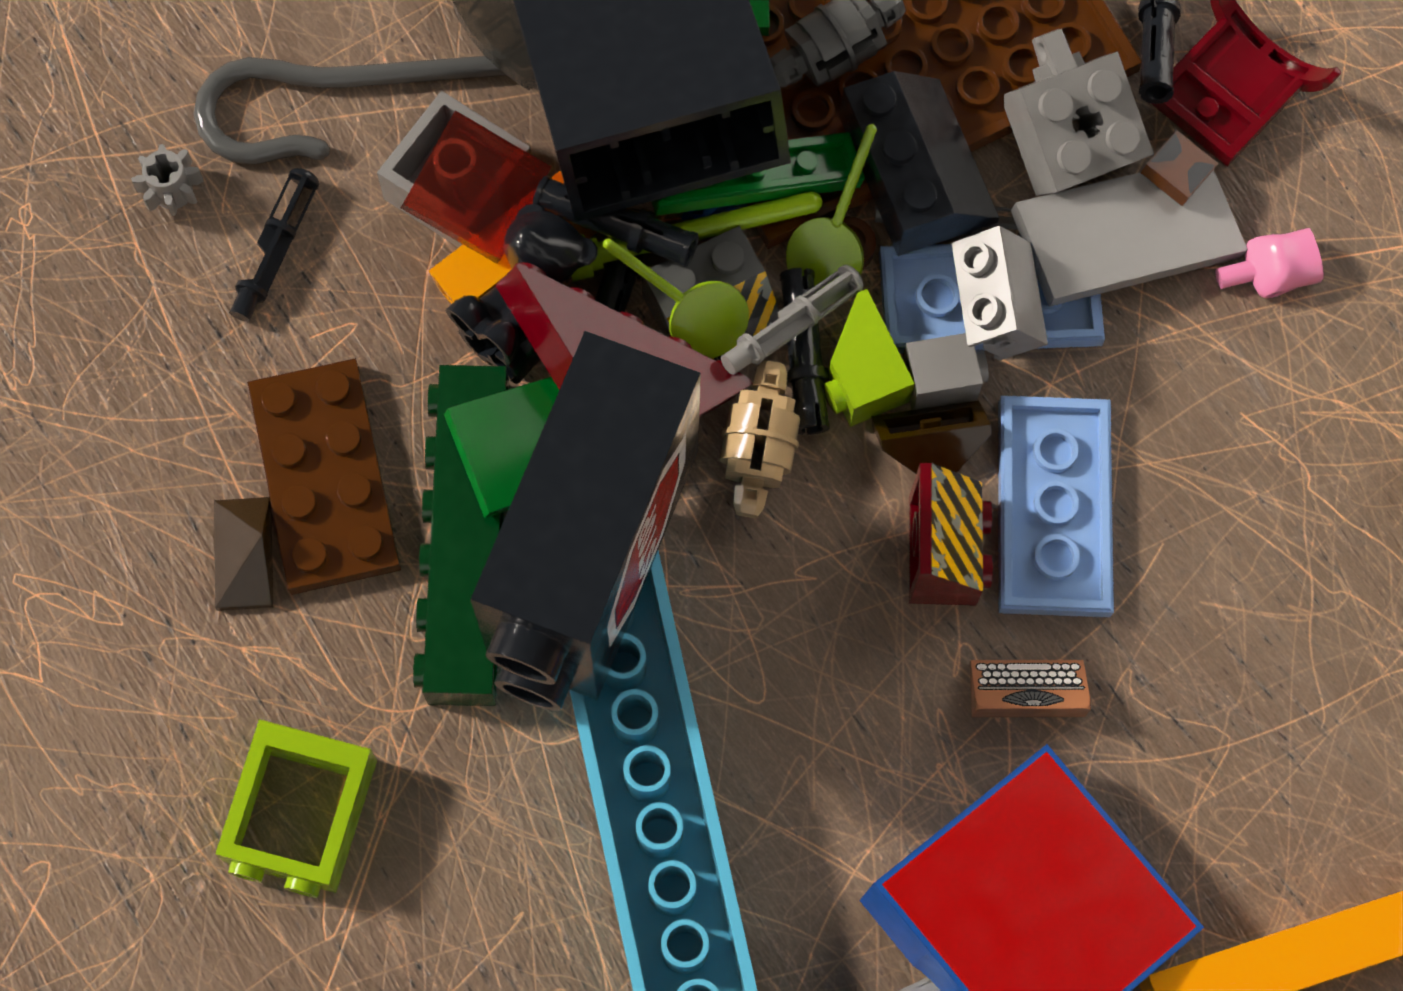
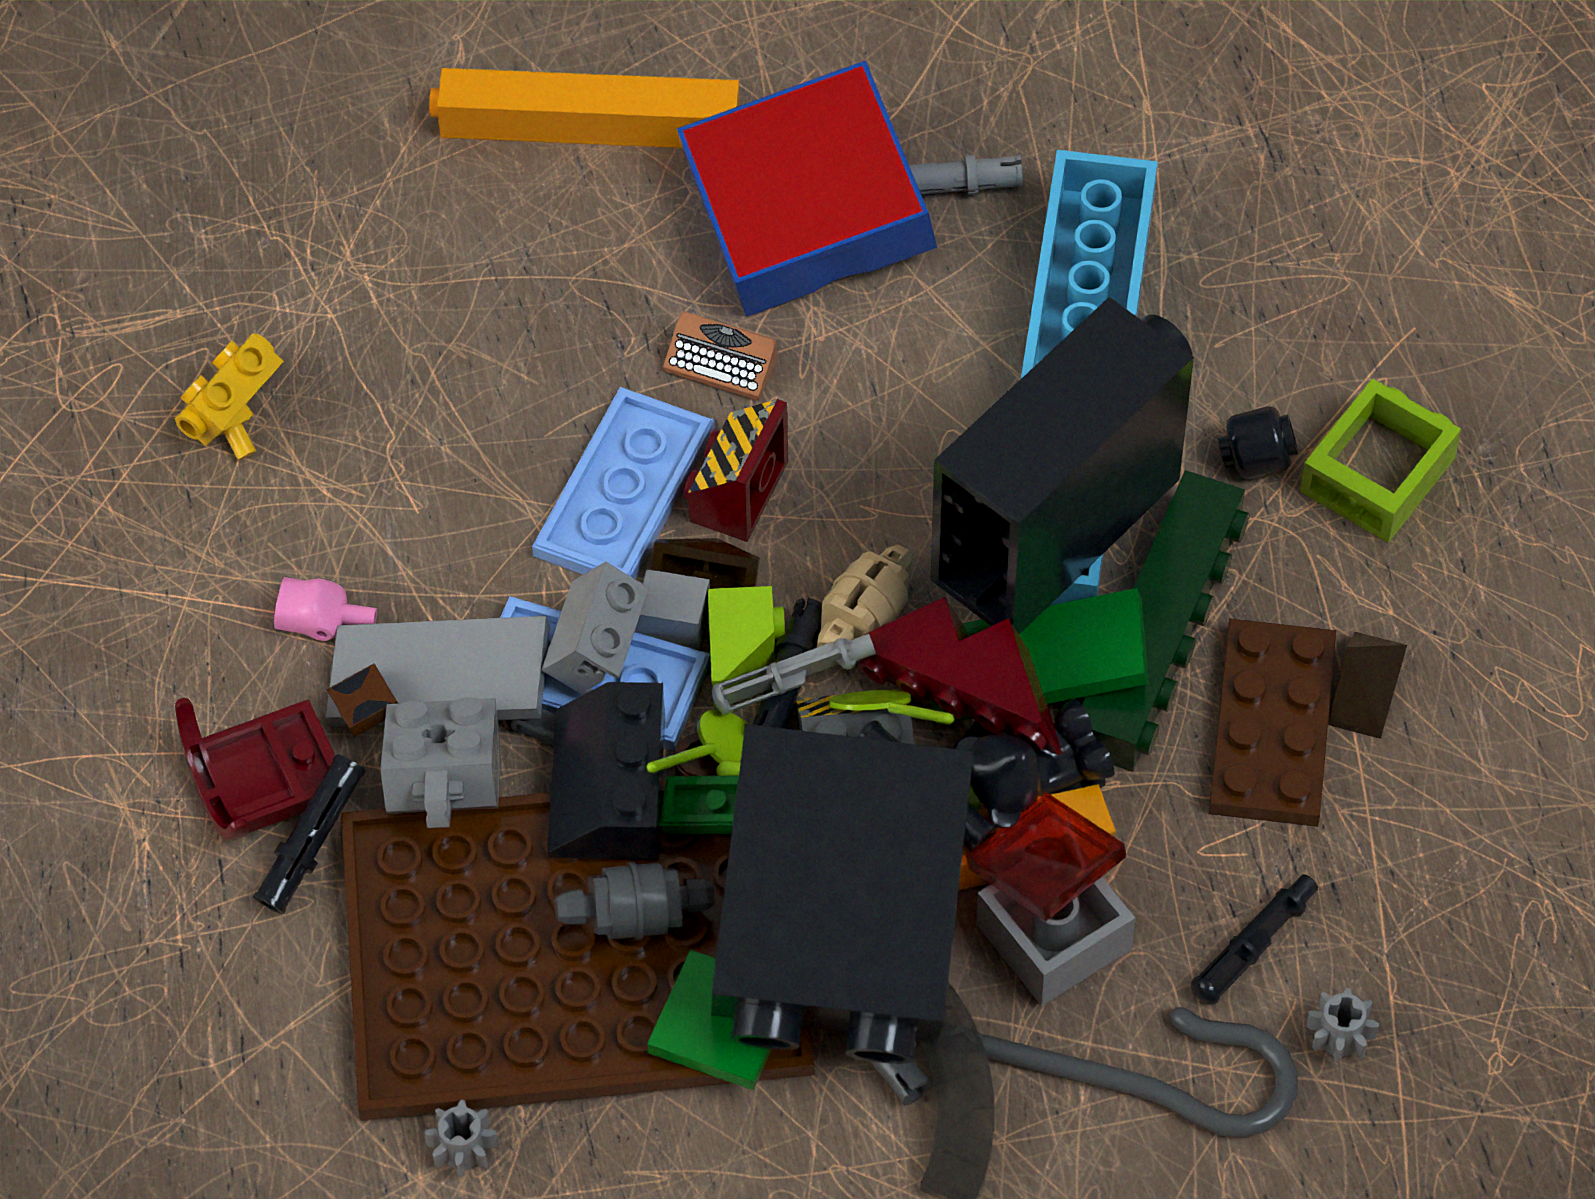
camera: 155 degrees left, 15 degrees down
(431, 778) = (1258, 443): none -> black head

